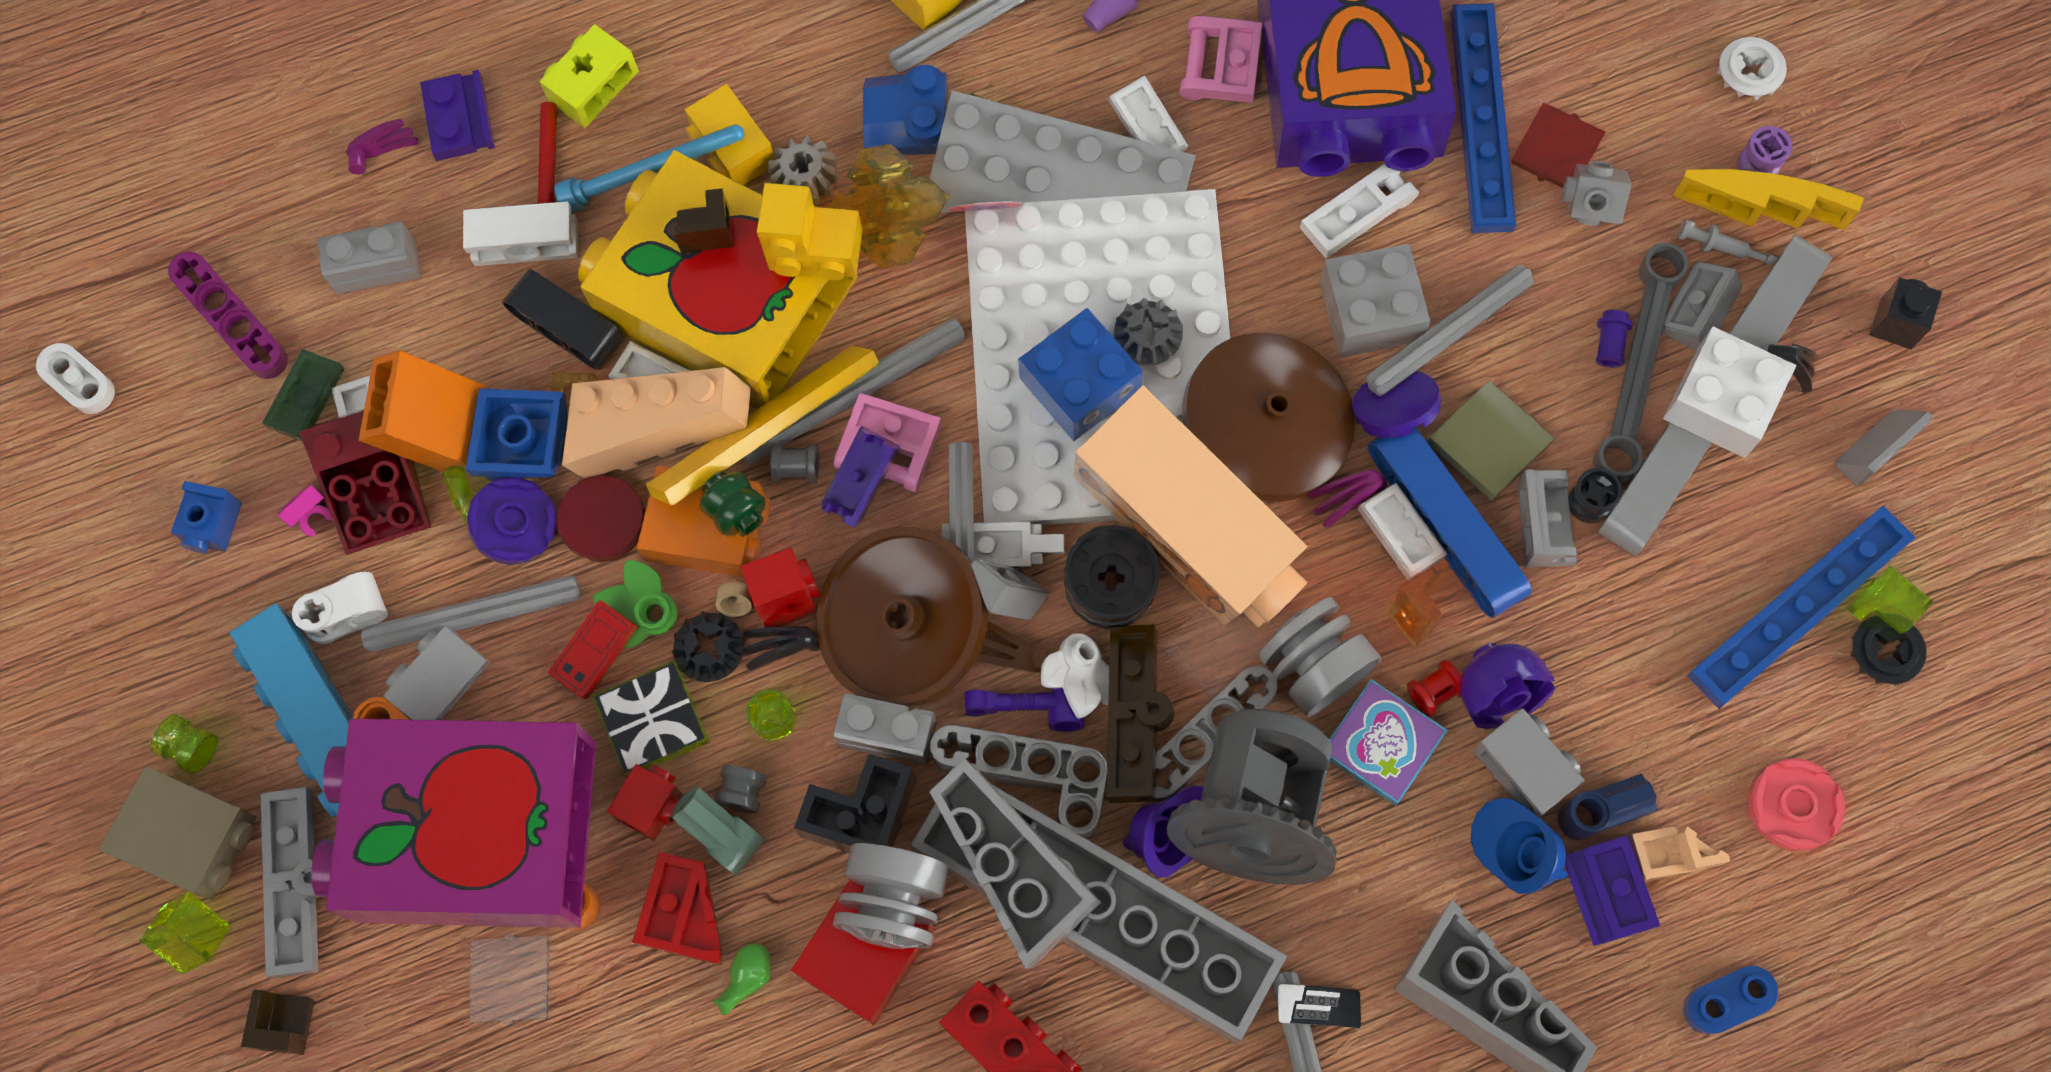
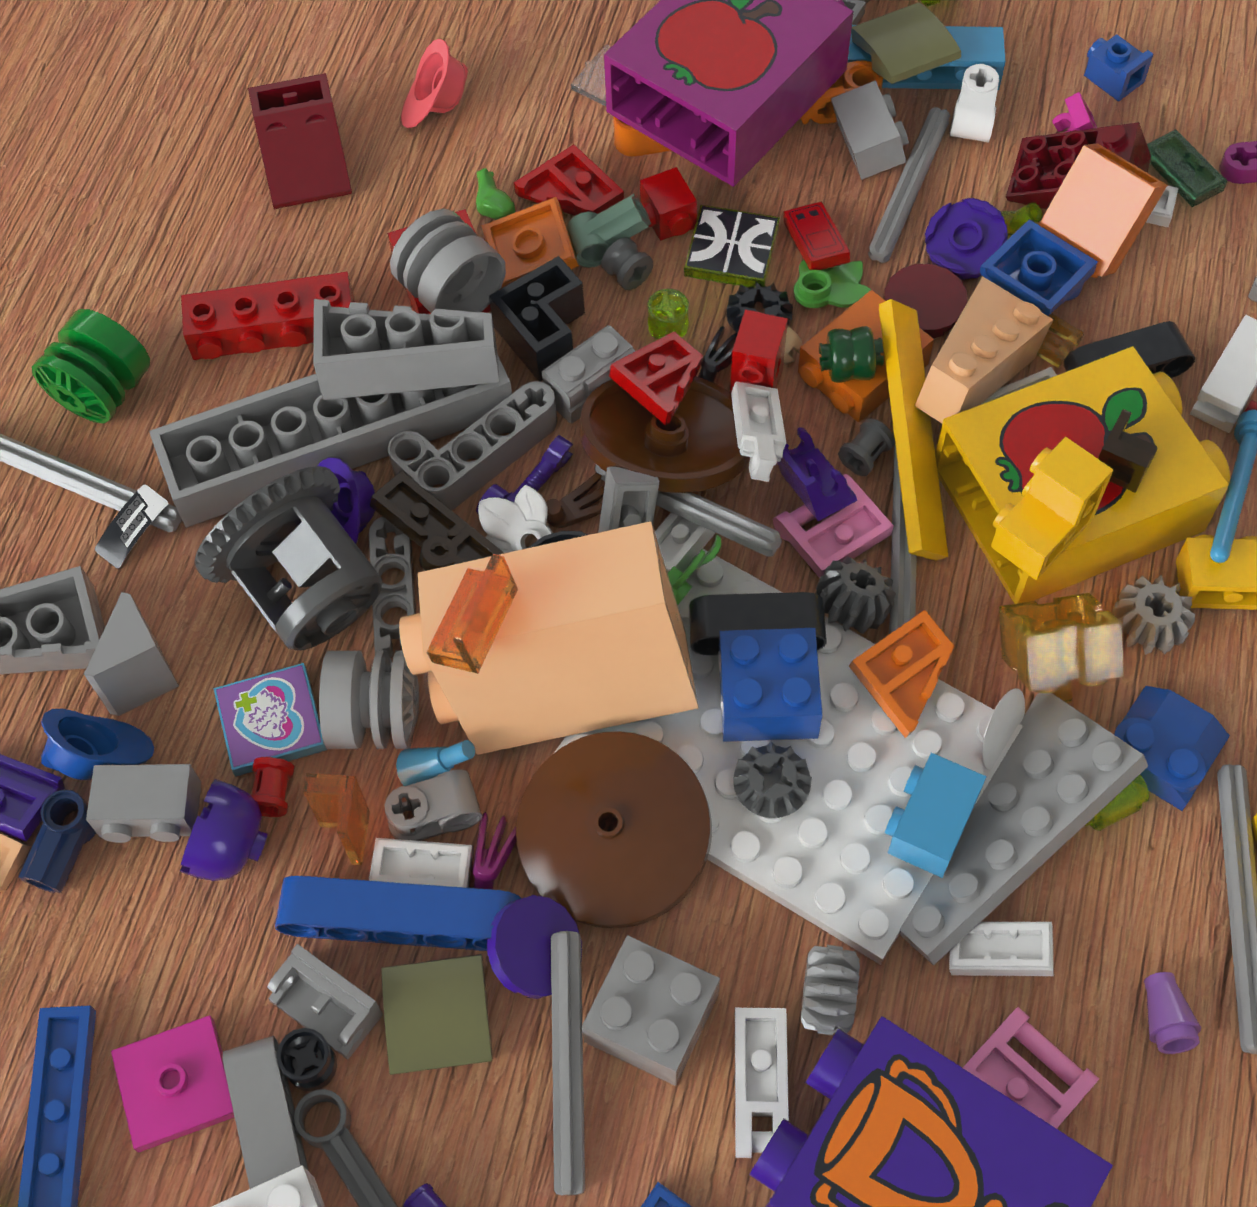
camera: 125 degrees right, 10 degrees down
(315, 695) = (906, 42): none -> olive slope
(779, 895) = (531, 239): none -> orange plate
(852, 659) = (659, 374): none -> red wing
(854, 533) = (758, 427): none -> white hinge
(946, 378) = (855, 594): none -> dark grey gear
(988, 297) = (905, 669): none -> orange wing
(1029, 499) = (678, 578): none -> bright green plate
(1031, 420) = (753, 612): none -> black beam
(1093, 204) = (935, 814): none -> dark azure brick
(1257, 520) = (474, 617): none -> clear orange panel
(1270, 197) = (830, 989): none -> light grey gear
(1327, 577) = (425, 763): none -> dark azure cone
(1350, 552) = (437, 804): none -> light grey piece
(1436, 868) = (128, 661): none -> light grey slope
(1682, 577) = (173, 1083): none -> dark pink plate

